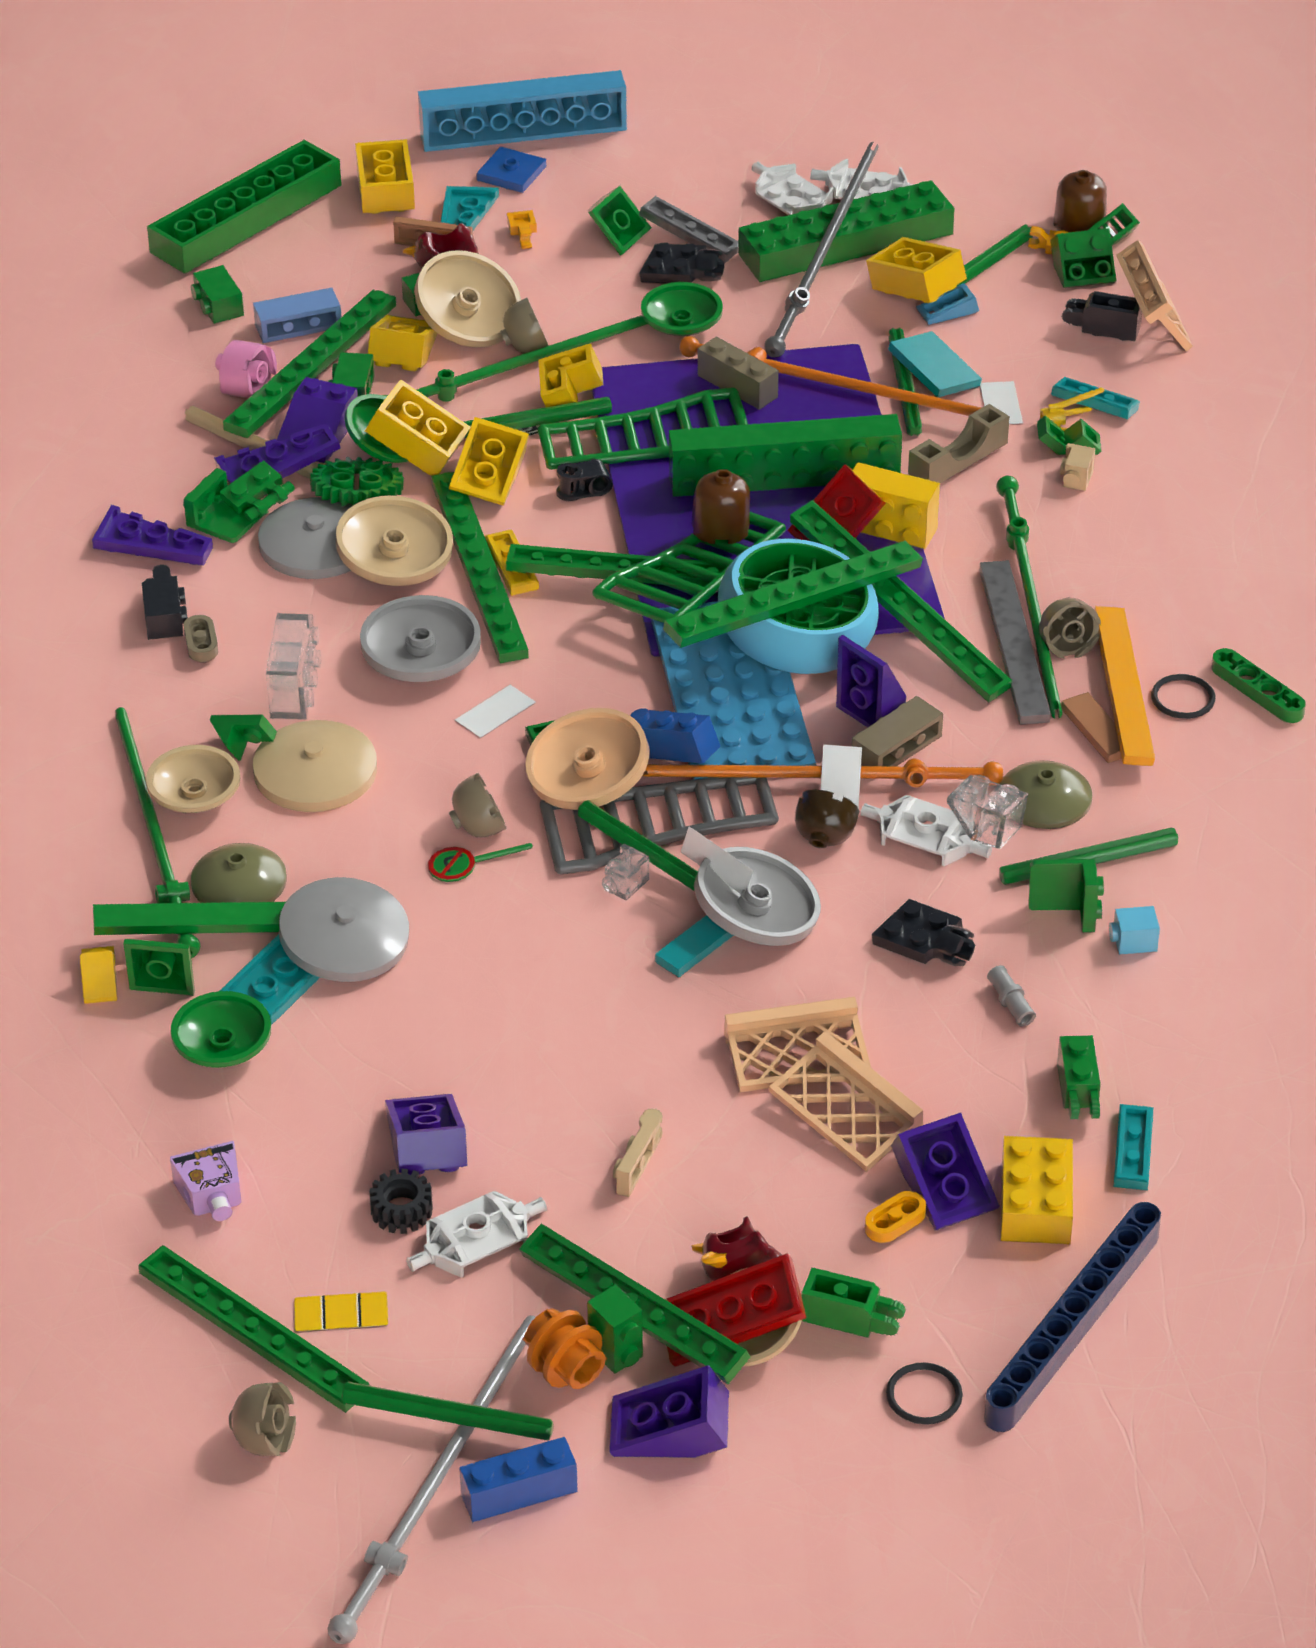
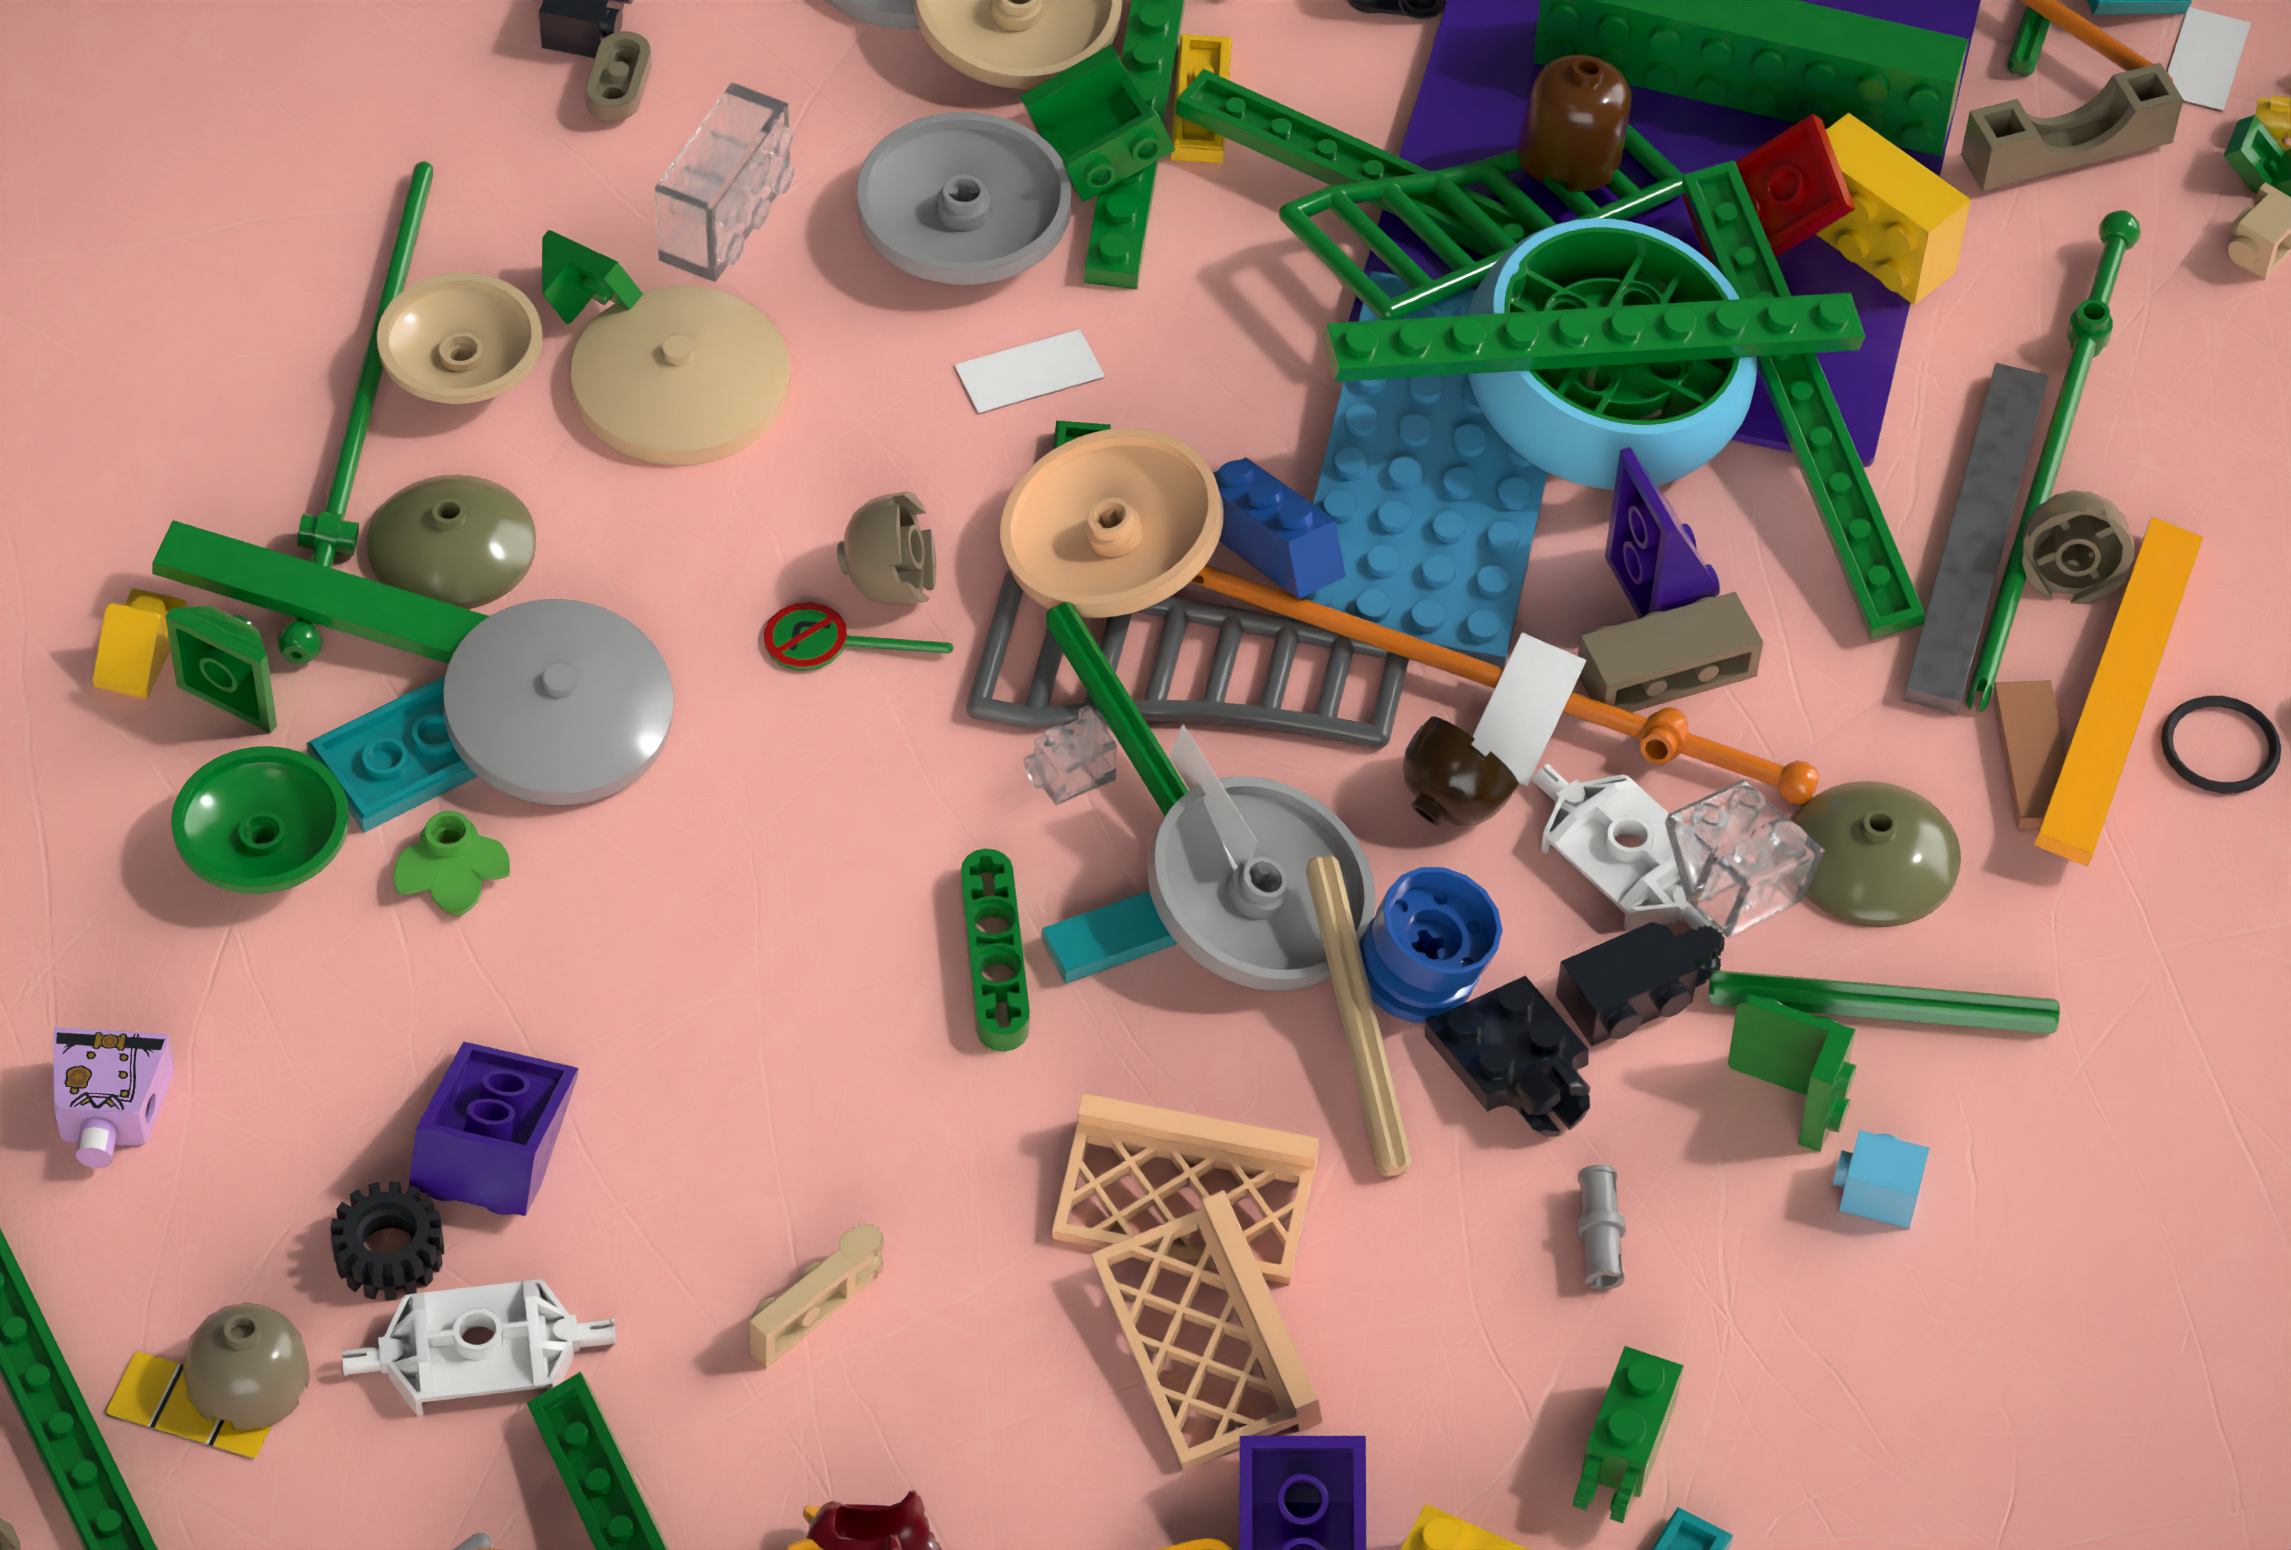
camera: 20 degrees right, 10 degrees up
(329, 1022) = (450, 870): none -> bright green plate
(361, 1280) = (246, 1366): none -> dark tan cylinder
(471, 582) = (1097, 123): none -> green panel
(639, 970) = (995, 949): none -> green beam
(839, 940) = (1358, 1016): none -> tan axle
(858, 895) = (1429, 943): none -> blue wheel
(965, 881) = (1636, 978): none -> black hinge

